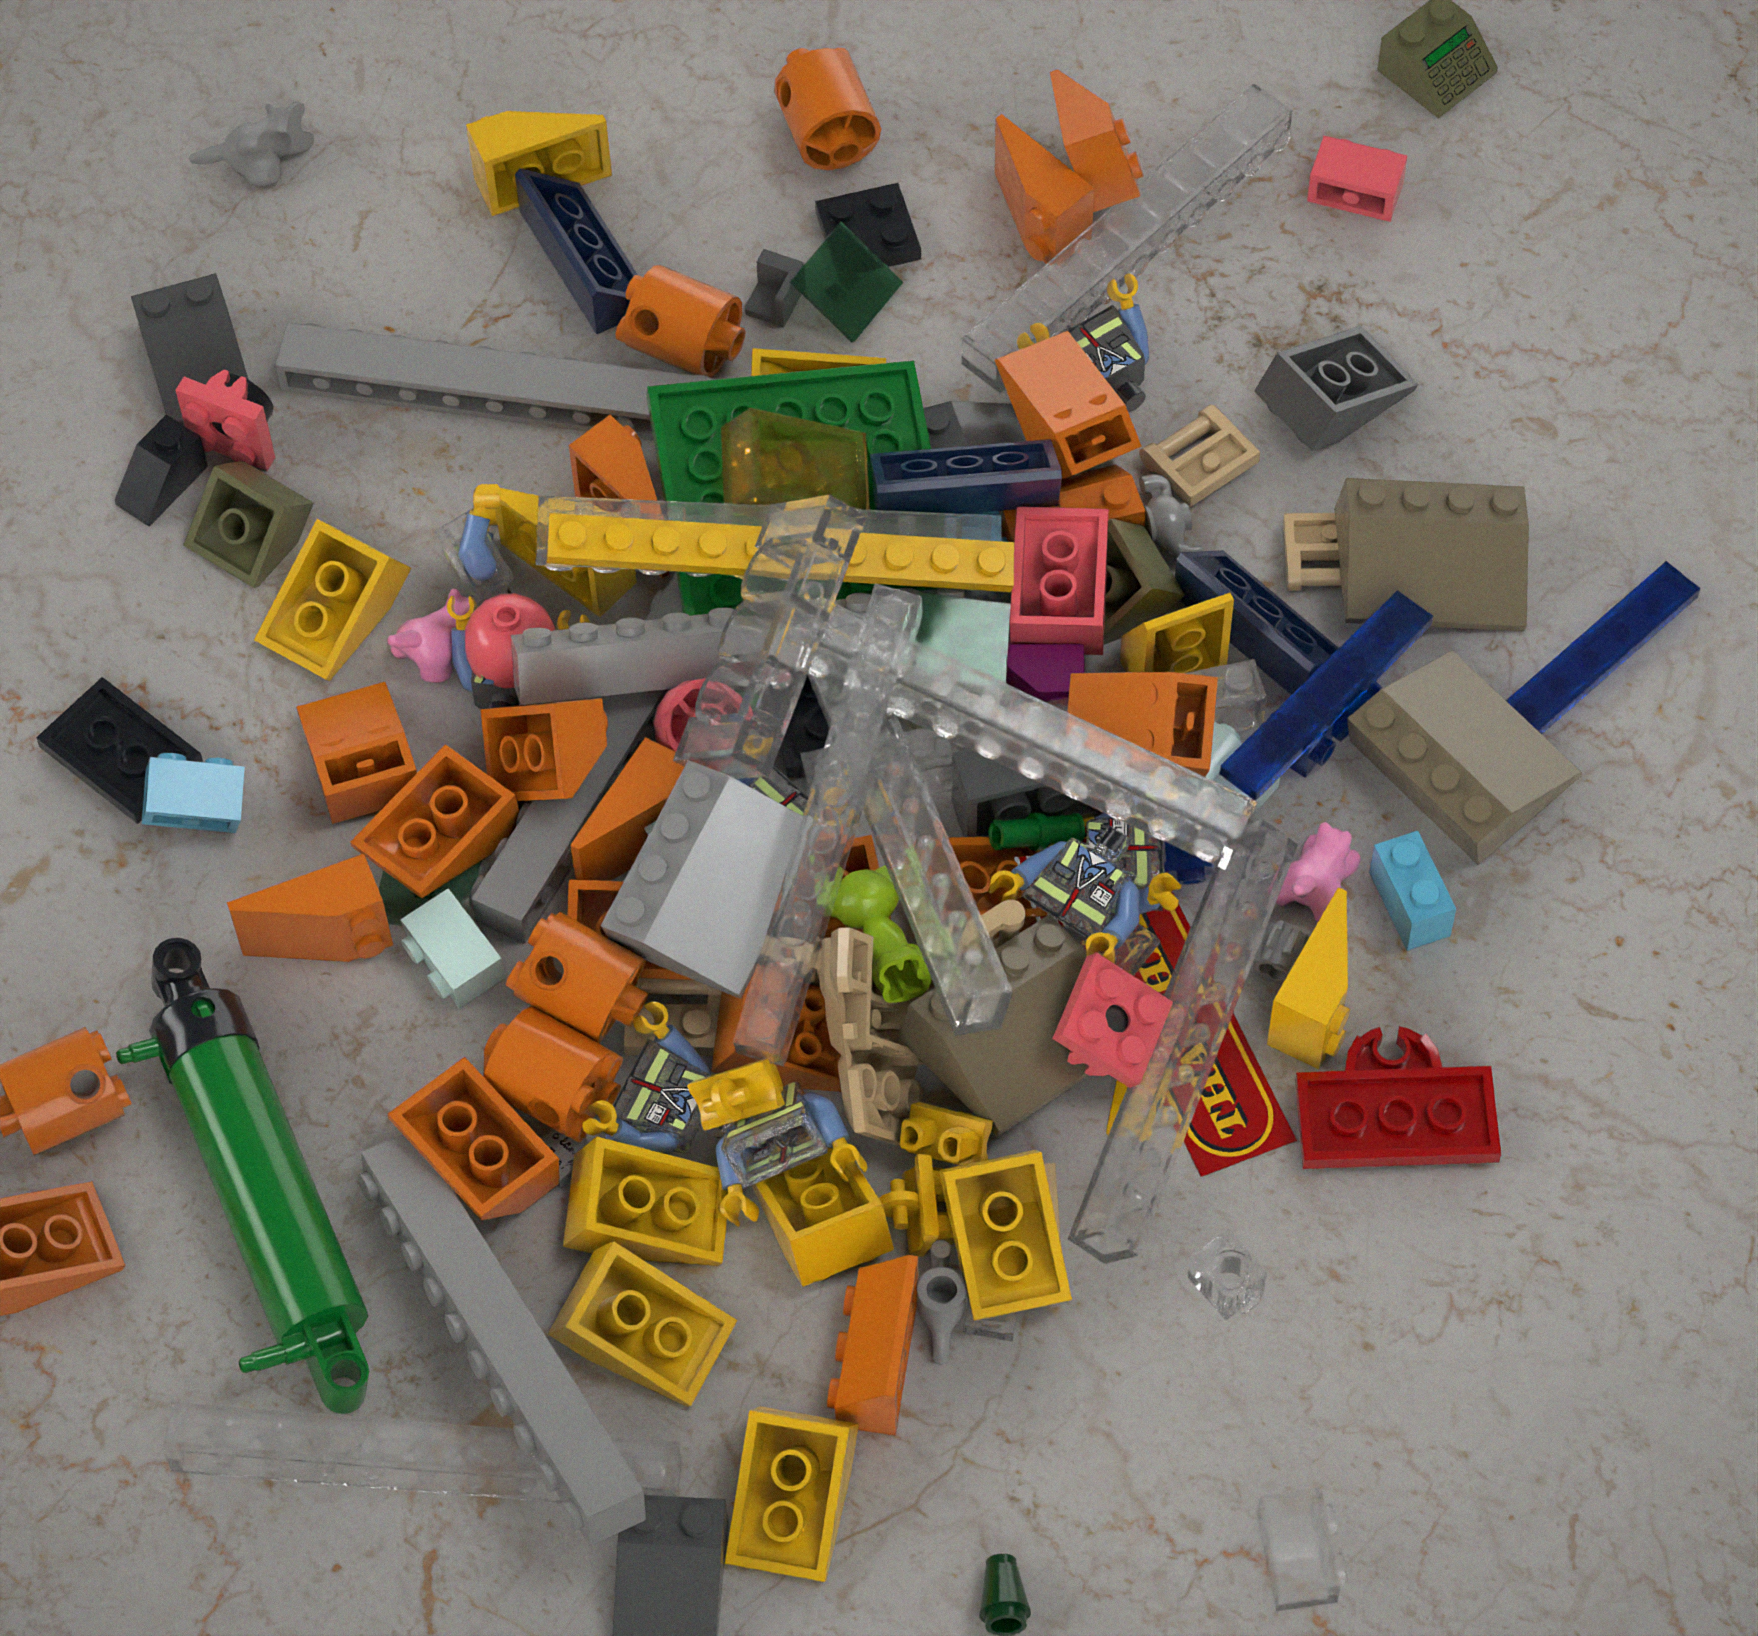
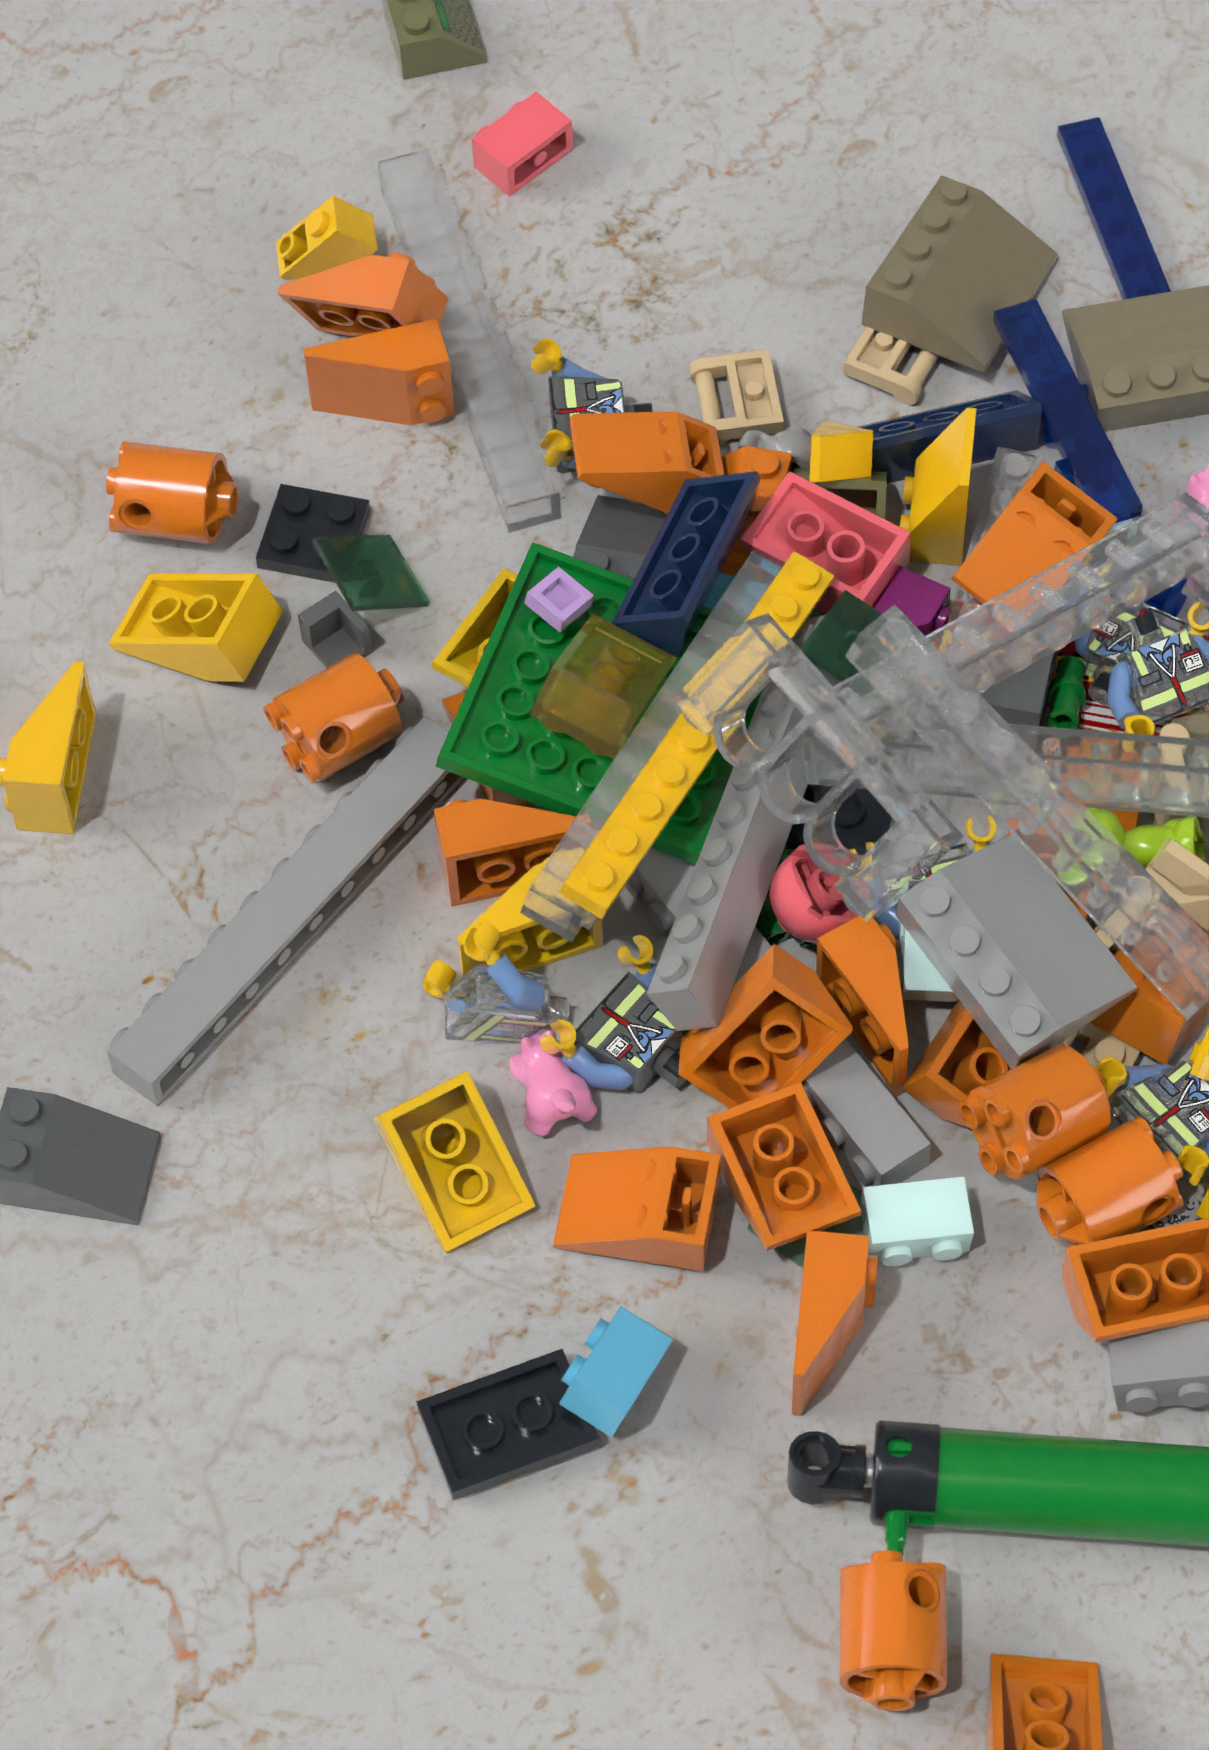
camera: 60 degrees left, 0 degrees up
(160, 470) = (197, 1248): black slope -> none
(229, 417) = (188, 1151): coral piece -> none
(247, 522) = (312, 1195): olive slope -> none
(490, 634) = (616, 1014): coral cylinder -> none
(577, 245) = (179, 774): dark blue slope -> none
(725, 196) = (199, 623): none -> yellow slope
(858, 400) = (559, 599): none -> lavender plate
(1153, 534) = (840, 452): none -> yellow slope
(1158, 94) = (326, 239): none -> yellow slope
(1333, 386) = (733, 267): dark grey slope -> none

